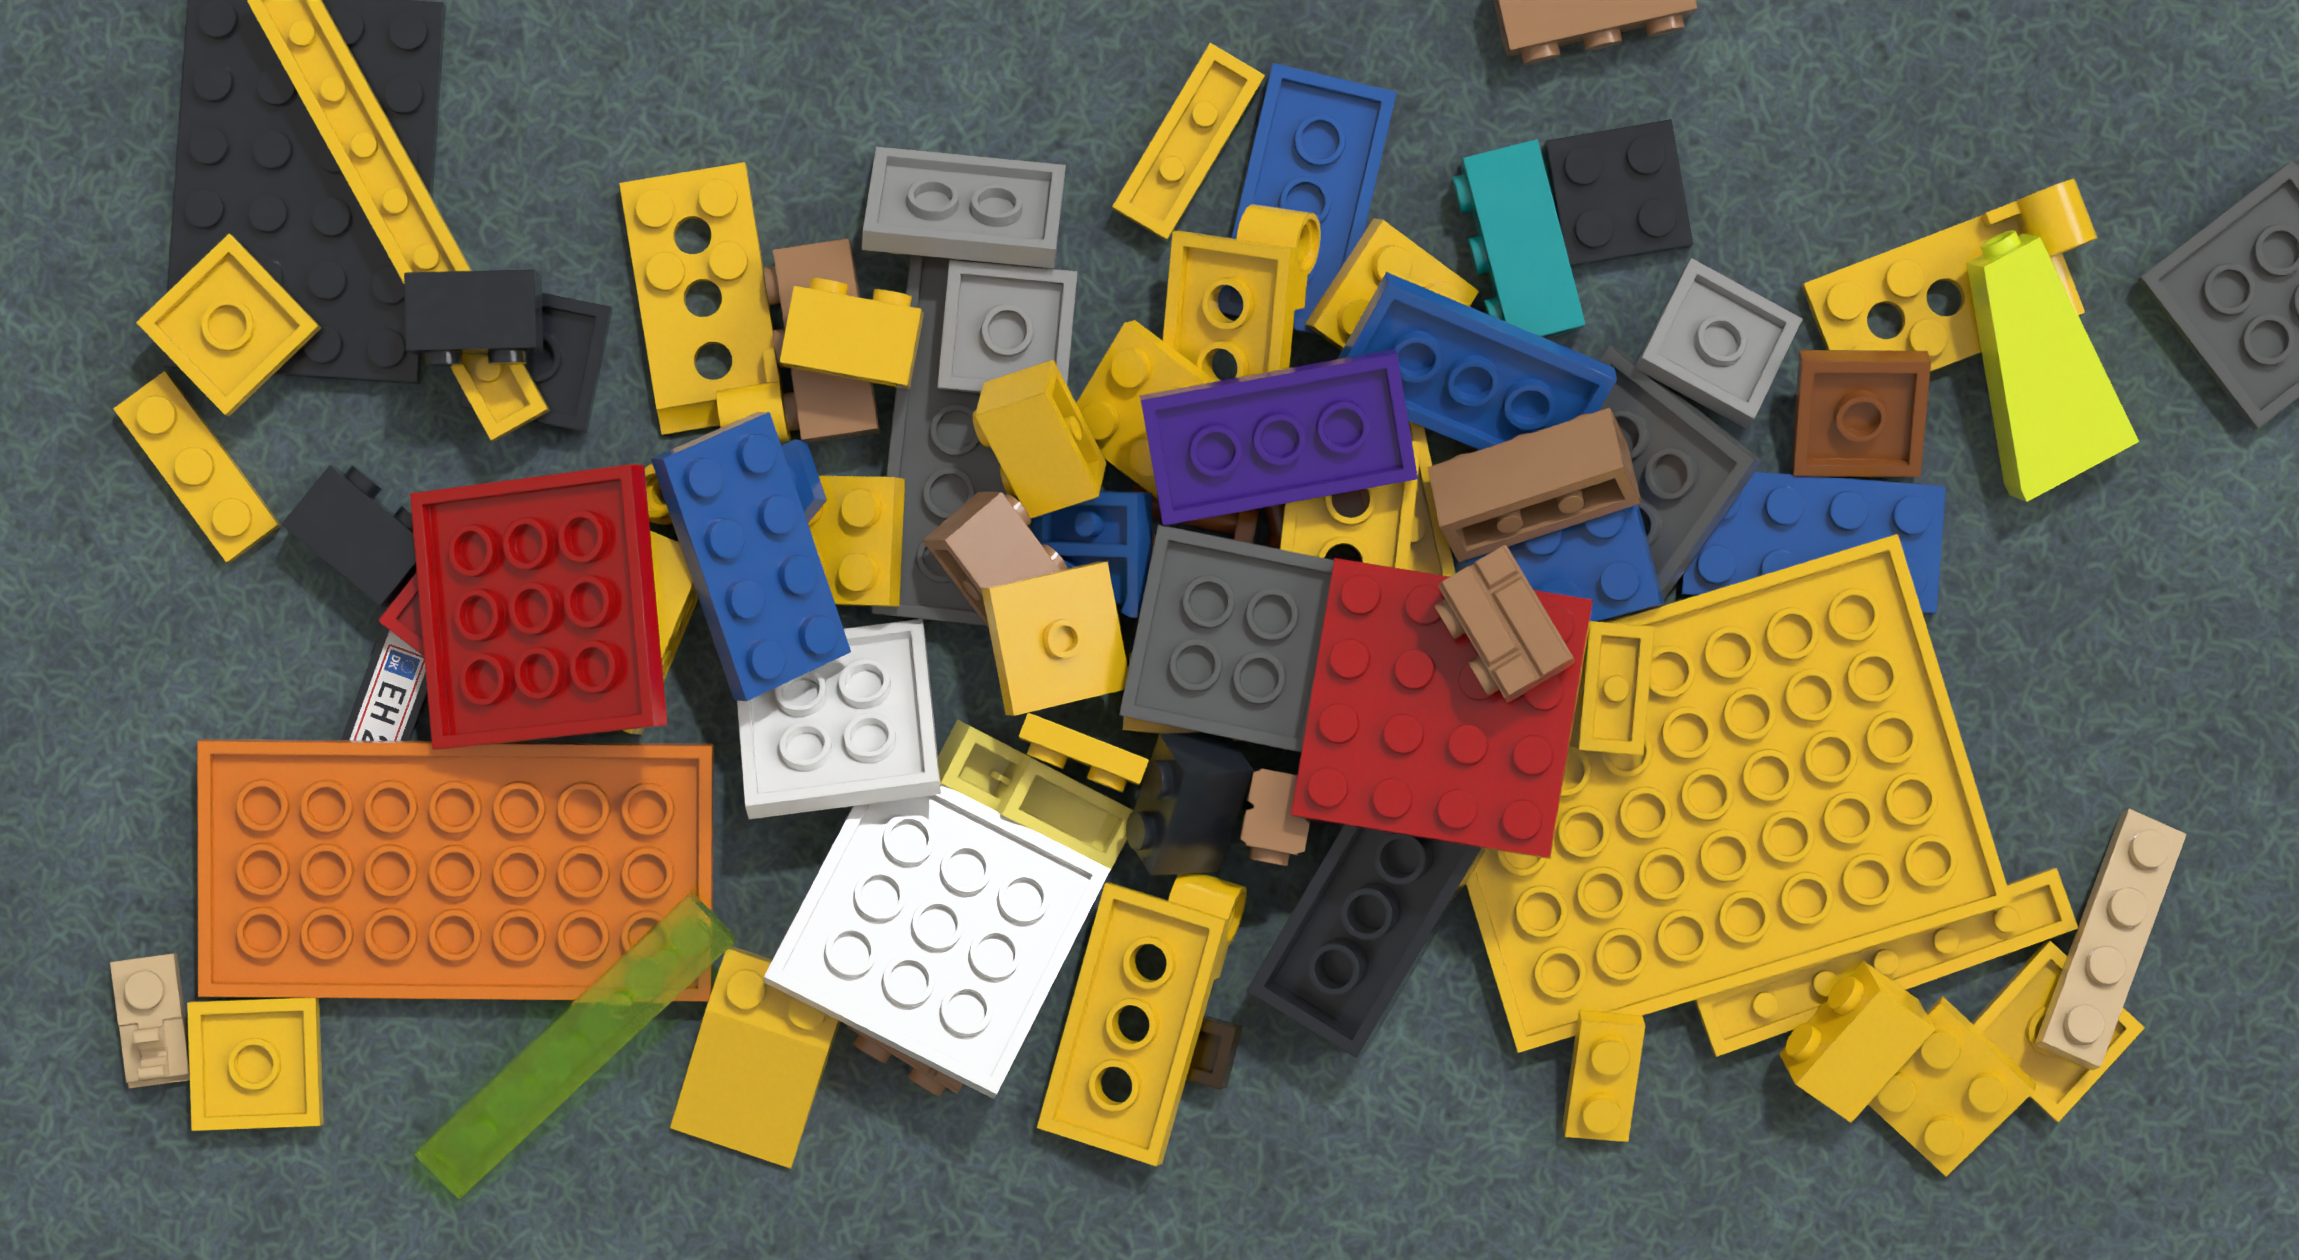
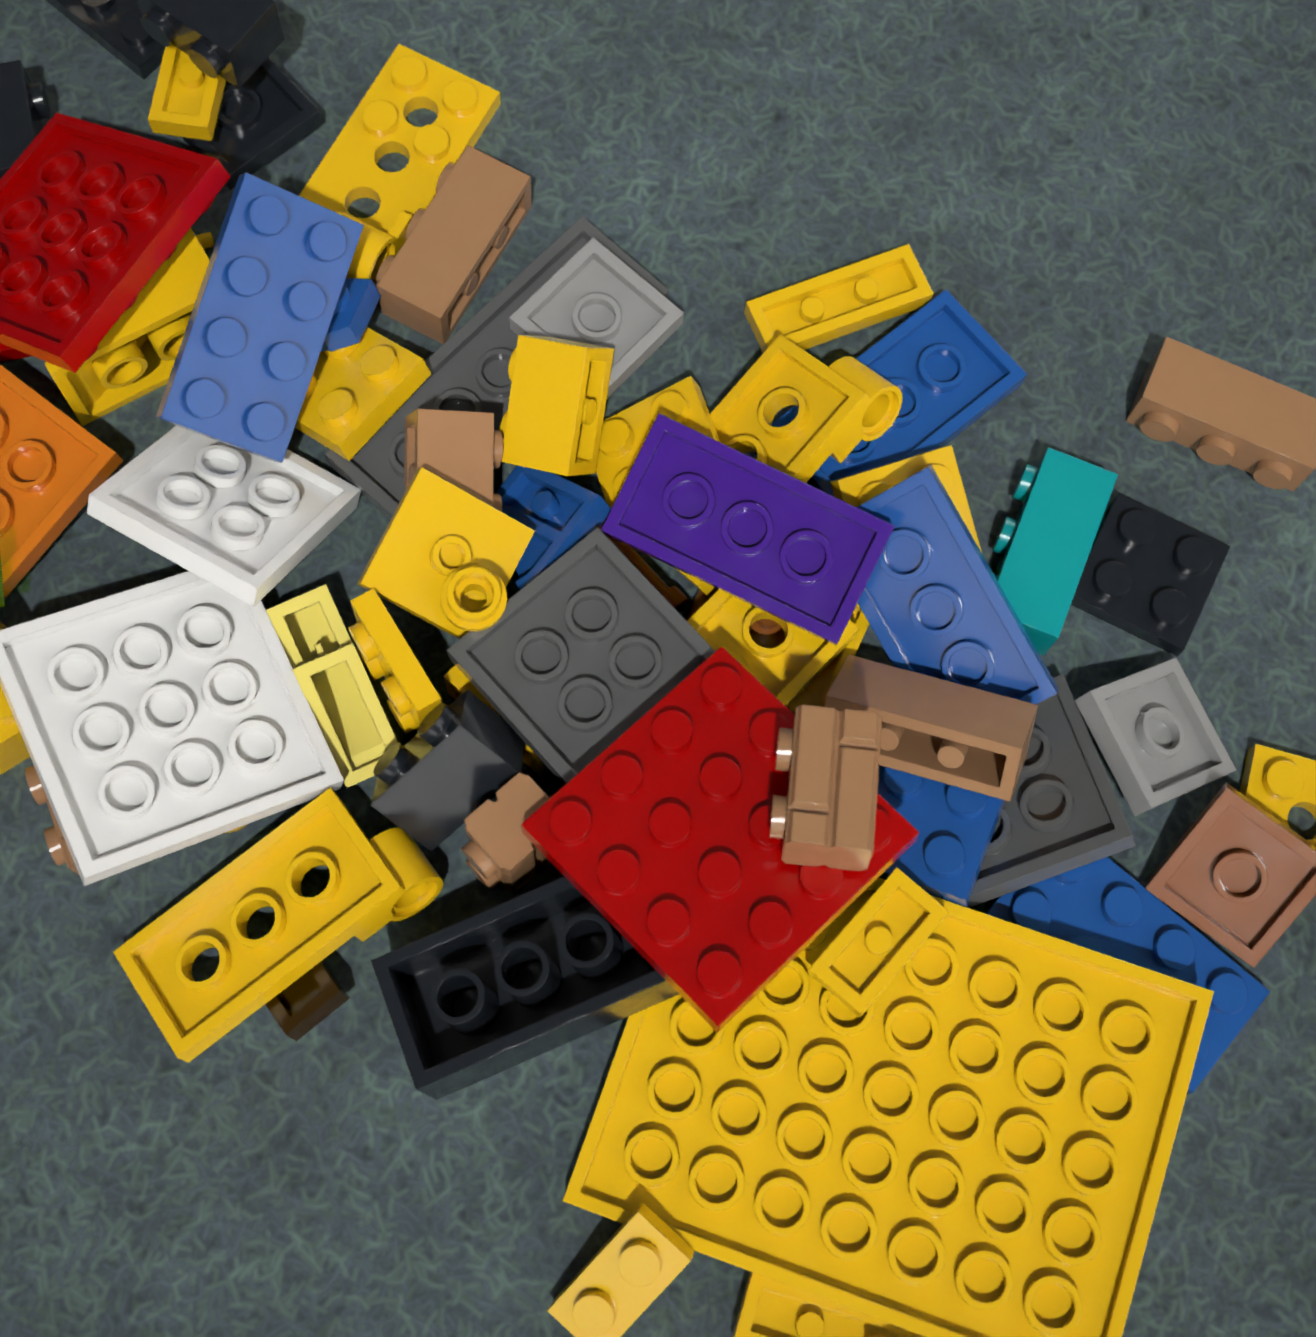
camera: 30 degrees right, 15 degrees down
(852, 334) = (474, 229): yellow brick -> none
(964, 207) = (632, 220): light grey plate -> none
(1129, 665) = (479, 579): none -> yellow plate

